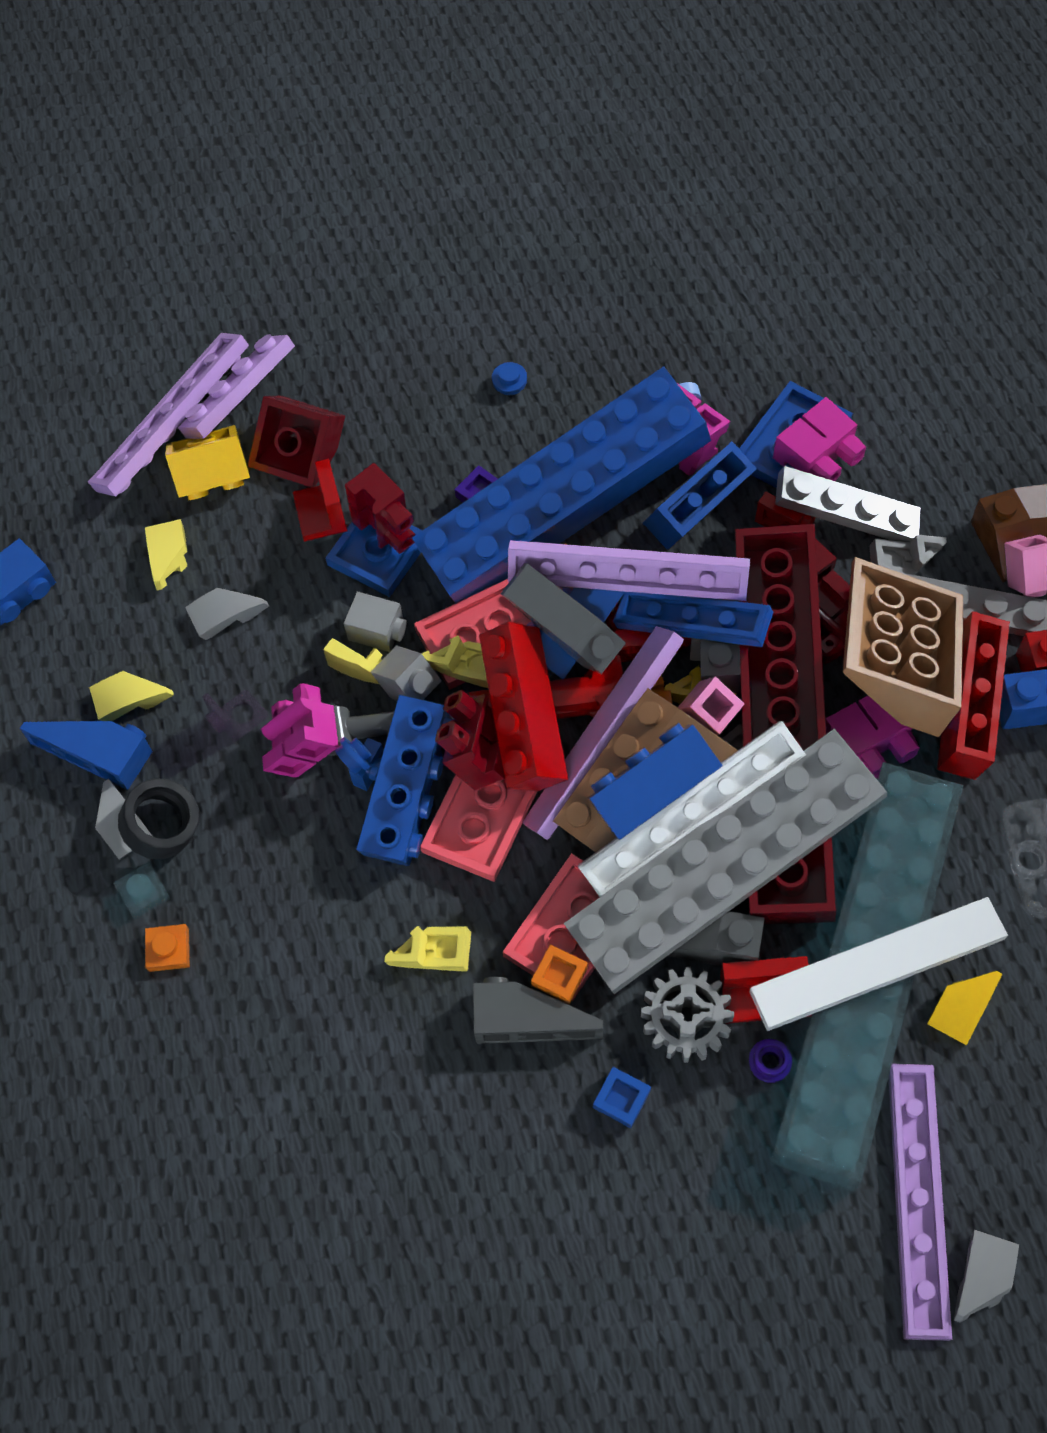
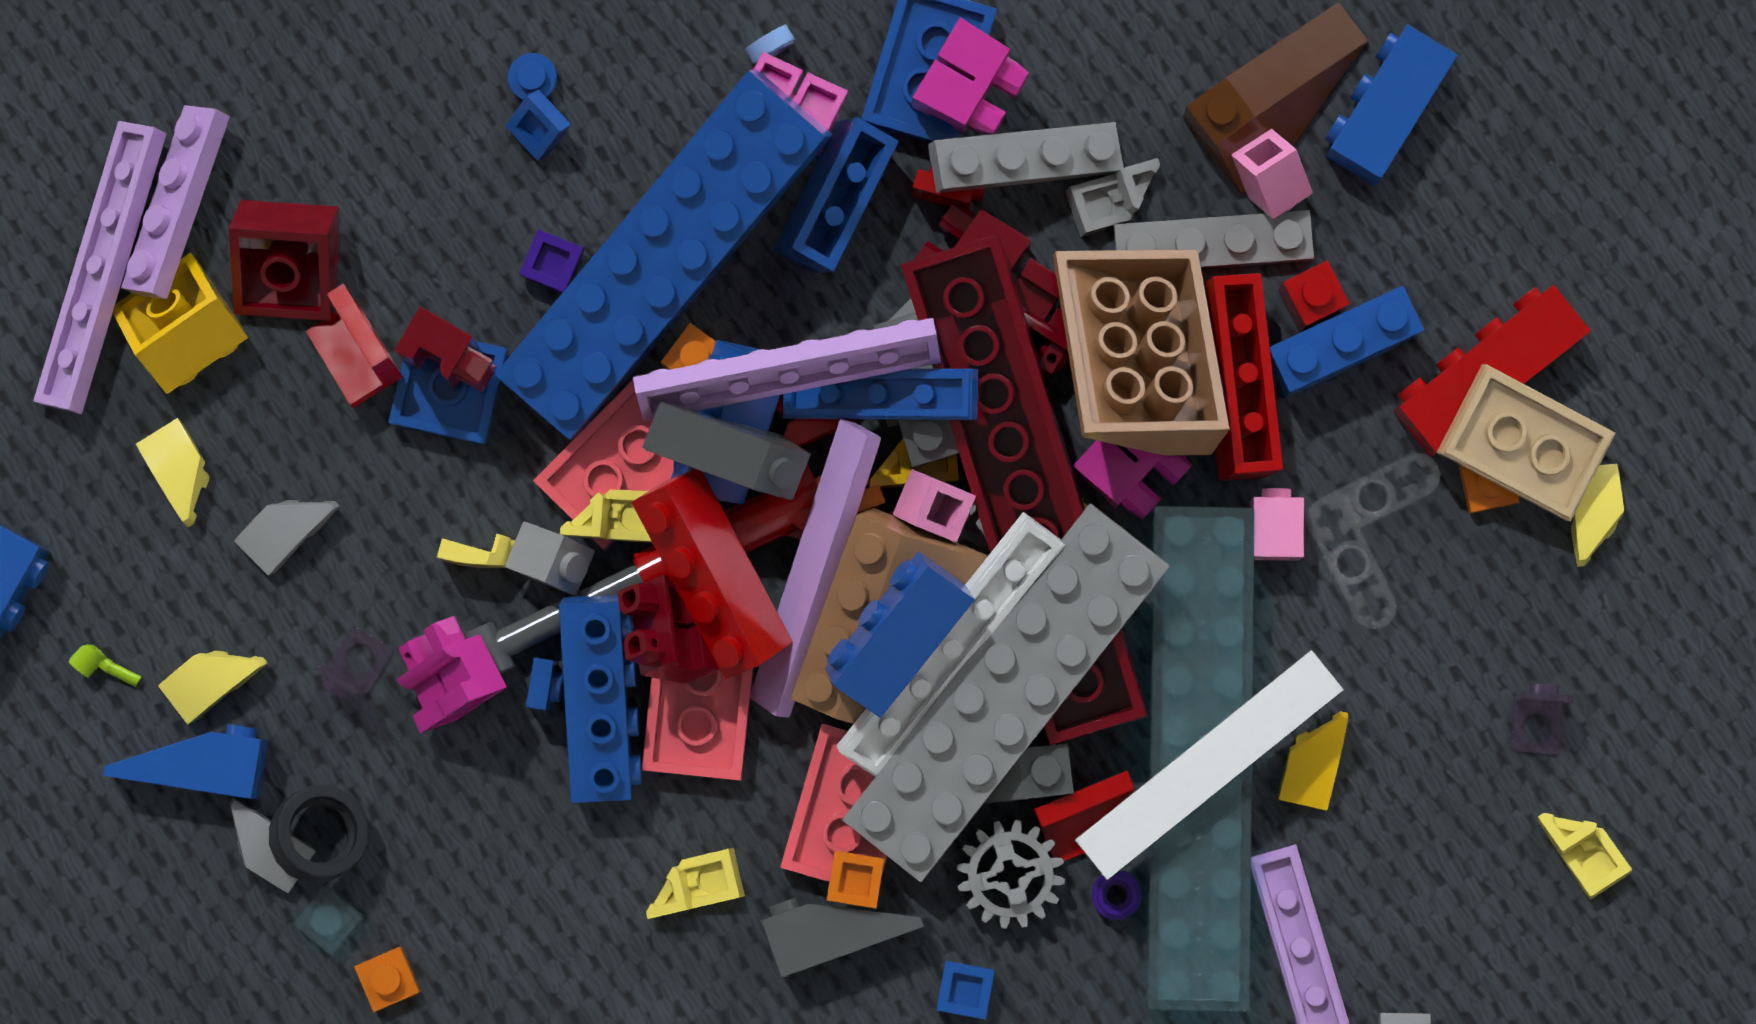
camera: 20 degrees left, 20 degrees up
(49, 656) = (89, 658): none -> lime hand
(353, 755) = (529, 693): blue plate -> none
(374, 622) = (484, 492): light grey brick -> none
(502, 404) = (538, 125): none -> blue plate
(977, 813) = (1278, 525): none -> bright pink brick

